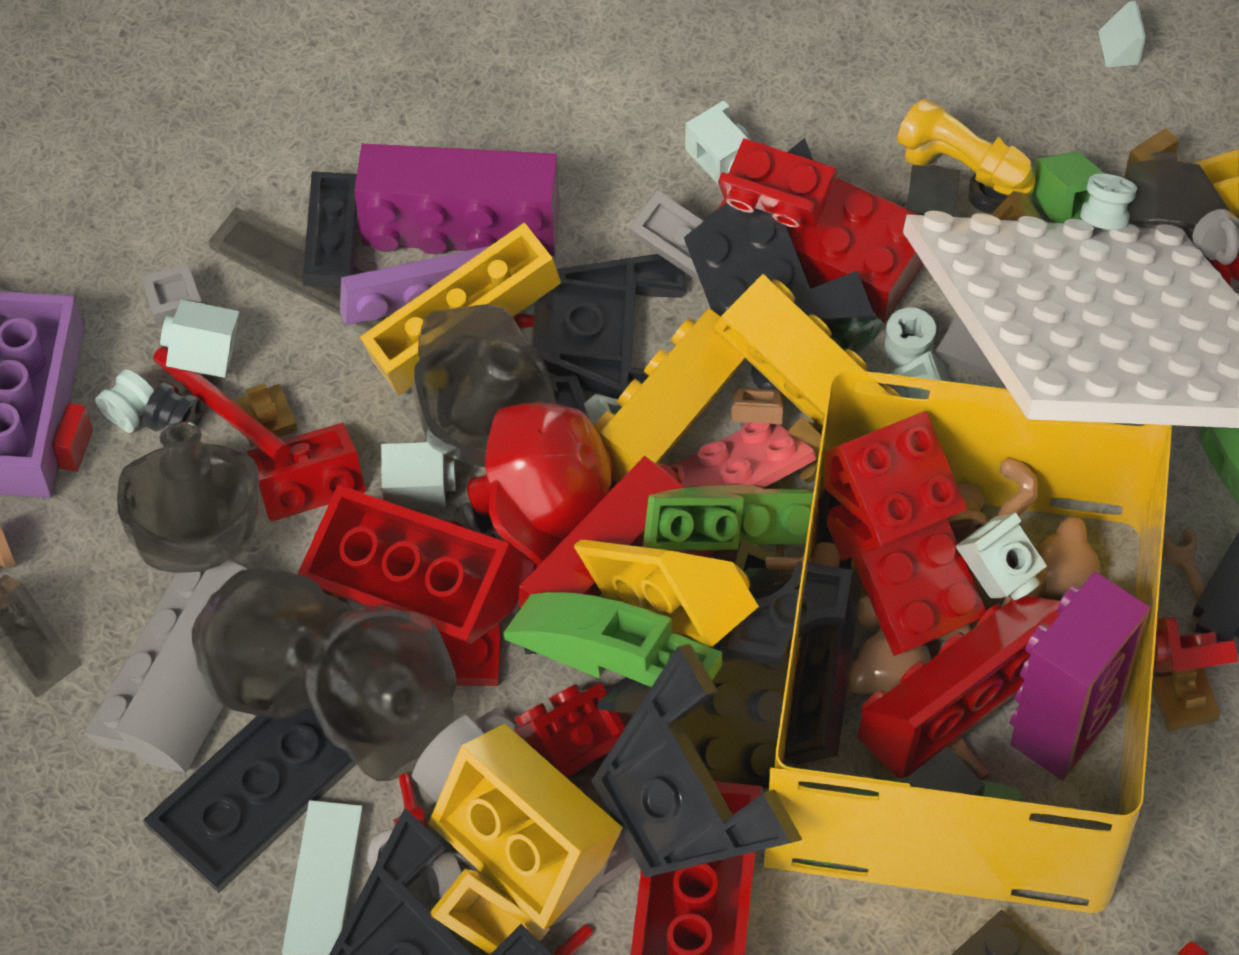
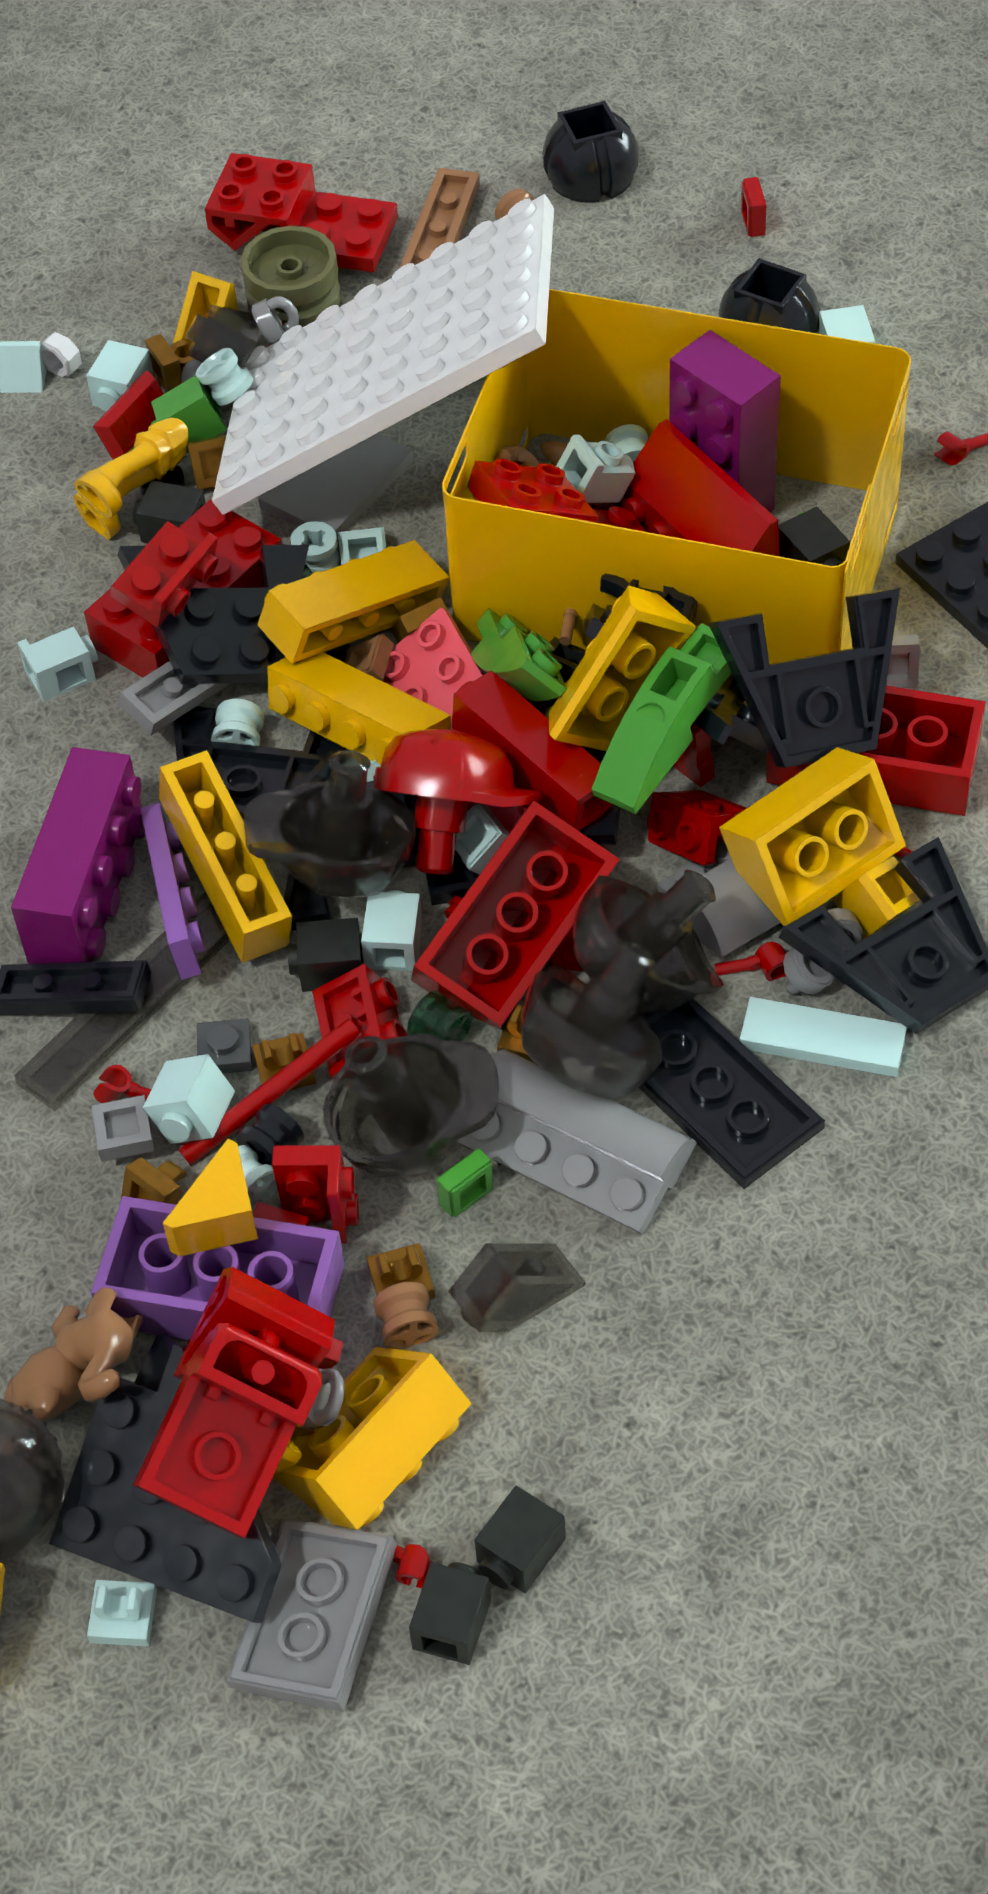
camera: 80 degrees left, 5 degrees down
(36, 542) = (400, 1266): none -> pearl gold tile
(51, 361) = (214, 1208): none -> yellow slope
(98, 455) = (317, 1184): none -> red bracket
(113, 333) = (153, 1183): none -> pearl gold tile
(127, 577) = (465, 1183): none -> bright green tile
(228, 297) = (118, 1084): none -> red hand
(282, 363) = (227, 1044): none -> dark grey plate
(299, 534) = (440, 1019): none -> clear green wheel
(378, 421) = (324, 951): none -> pearl dark grey brick
(655, 308) = (238, 722): none -> light aqua wheel
(833, 911) = (904, 661): none -> light grey tile
(1054, 135) = (129, 416): none -> red tile
(1120, 121) = (115, 372): none -> light aqua brick
(1149, 66) = (60, 355): none -> white tile

